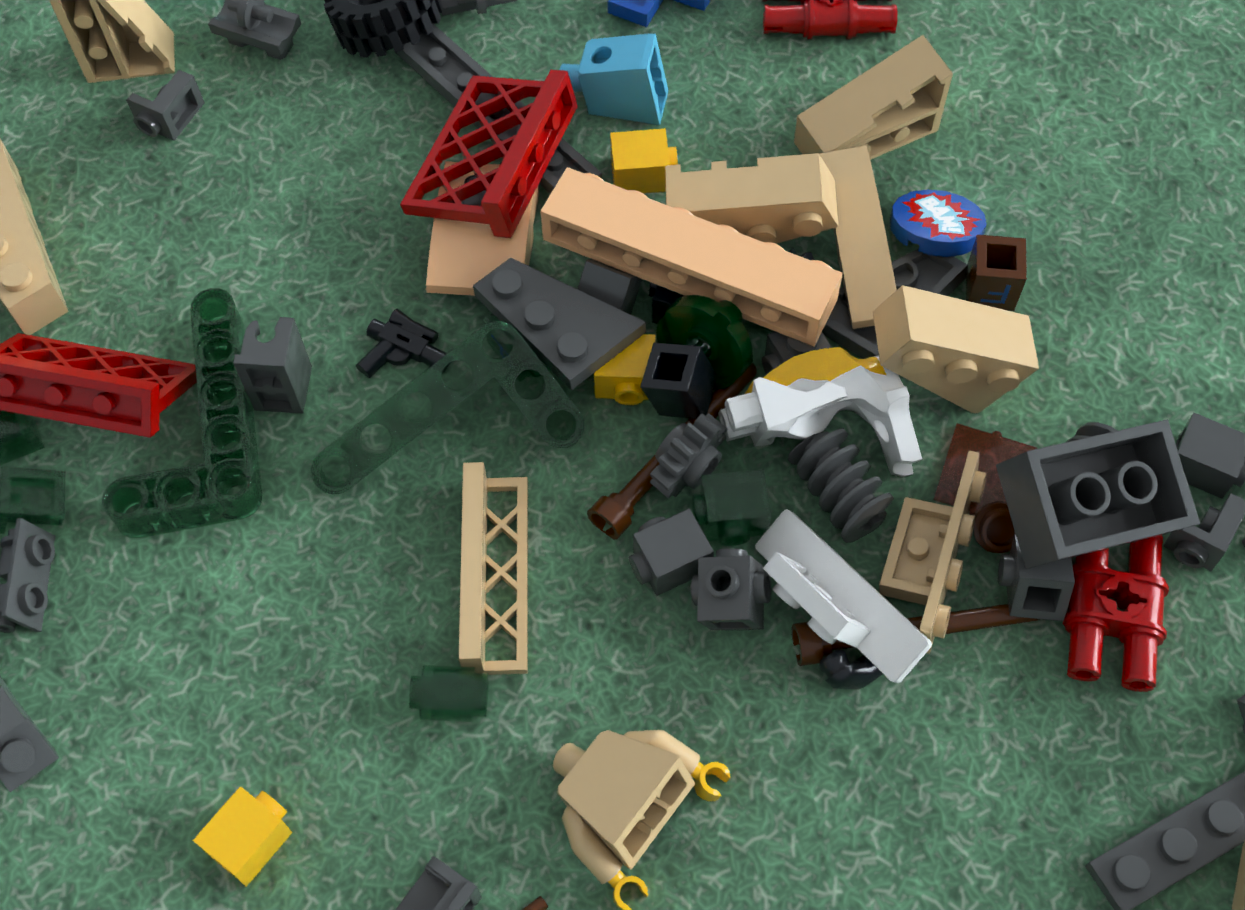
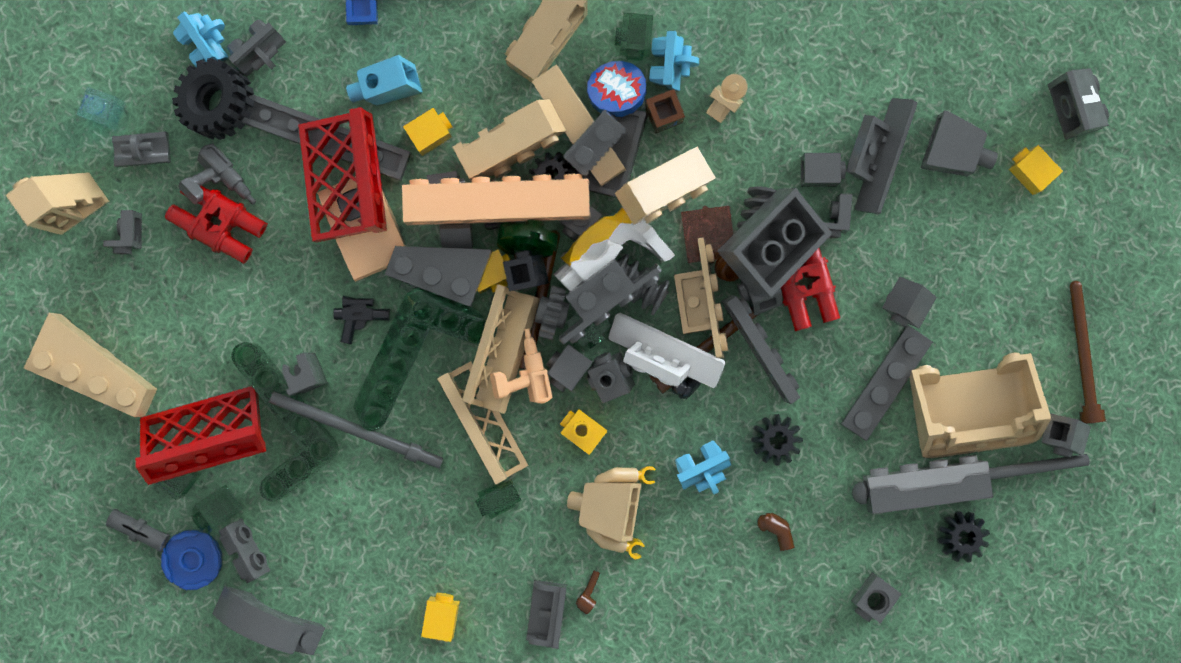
camera: 30 degrees left, 25 degrees up
(291, 145) = (216, 236): none -> red pin
(333, 86) = (218, 169): none -> dark grey piece
(361, 557) = (412, 451): none -> dark grey bar
(582, 480) = (504, 349): none -> tan fence
(609, 528) = (533, 377): none -> light nougat piece
(643, 655) = (582, 430): none -> yellow brick
(783, 445) = (602, 293): none -> dark grey bracket
(813, 819) = (714, 462): none -> medium azure hips
(877, 245) = (594, 143): none -> dark grey brick
(939, 827) = (783, 447): none -> black gear
(996, 171) = (635, 36): none -> clear green brick
(1004, 689) = (755, 338): none -> dark grey plate
(1042, 221) = (676, 63): none -> medium azure hips
(1098, 295) = (727, 96): none -> tan hips

